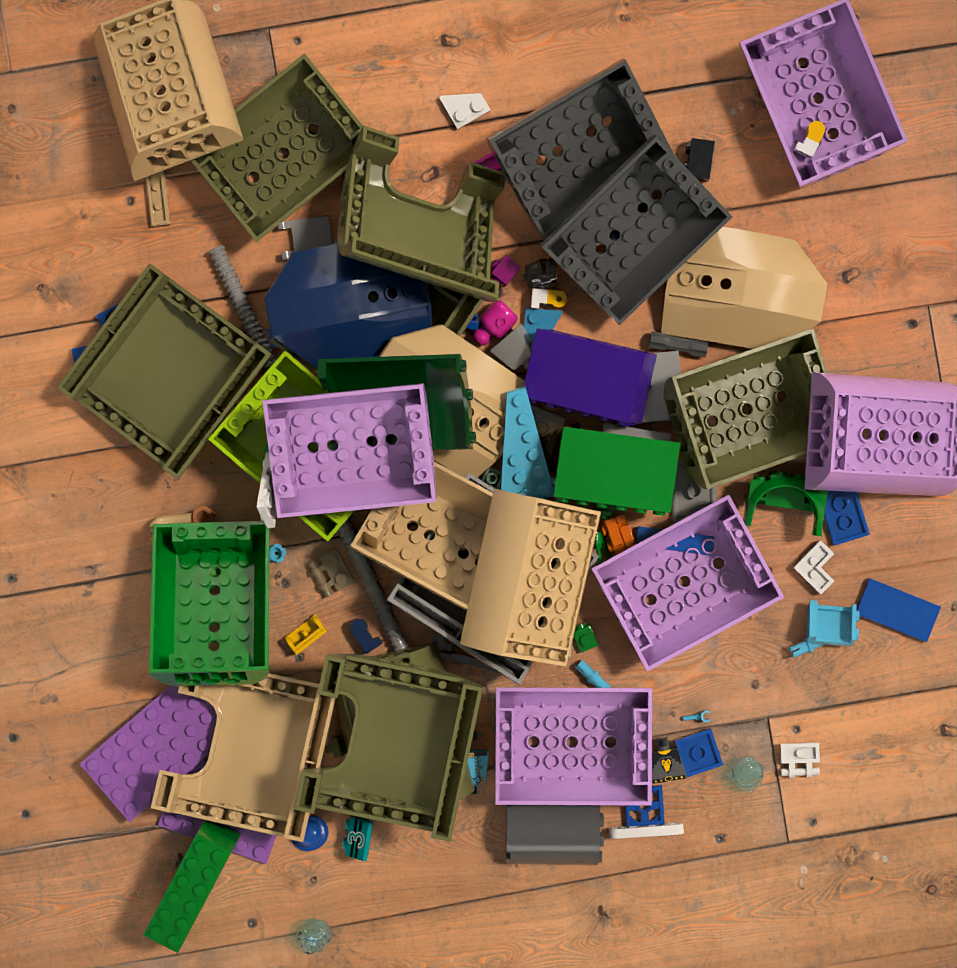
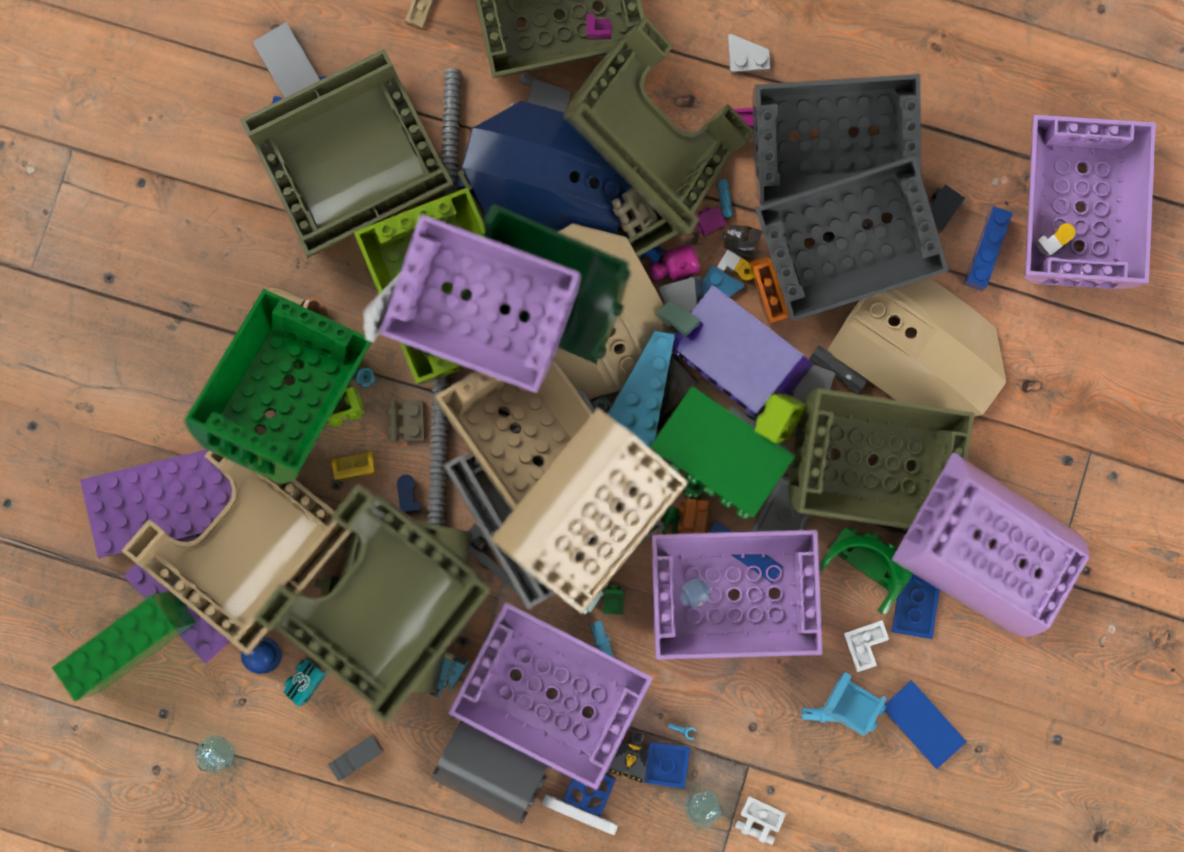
camera: 30 degrees right, 5 degrees down
(67, 313) = (286, 60): none -> light grey tile
(278, 580) = (354, 401): none -> lime bracket
(327, 154) = (598, 28): none -> magenta panel
(434, 878) = (356, 757): none -> dark grey piece
(444, 297) = (640, 209): none -> dark tan plate
(508, 244) = (725, 199): none -> medium azure axle
(521, 371) = (677, 316): none -> sand green slope
(585, 306) = (768, 289): none -> orange brick
(651, 416) = (780, 417): none -> lime brick
(652, 600) = (695, 593): none -> sand blue head
(755, 175) = (988, 248): none -> blue brick

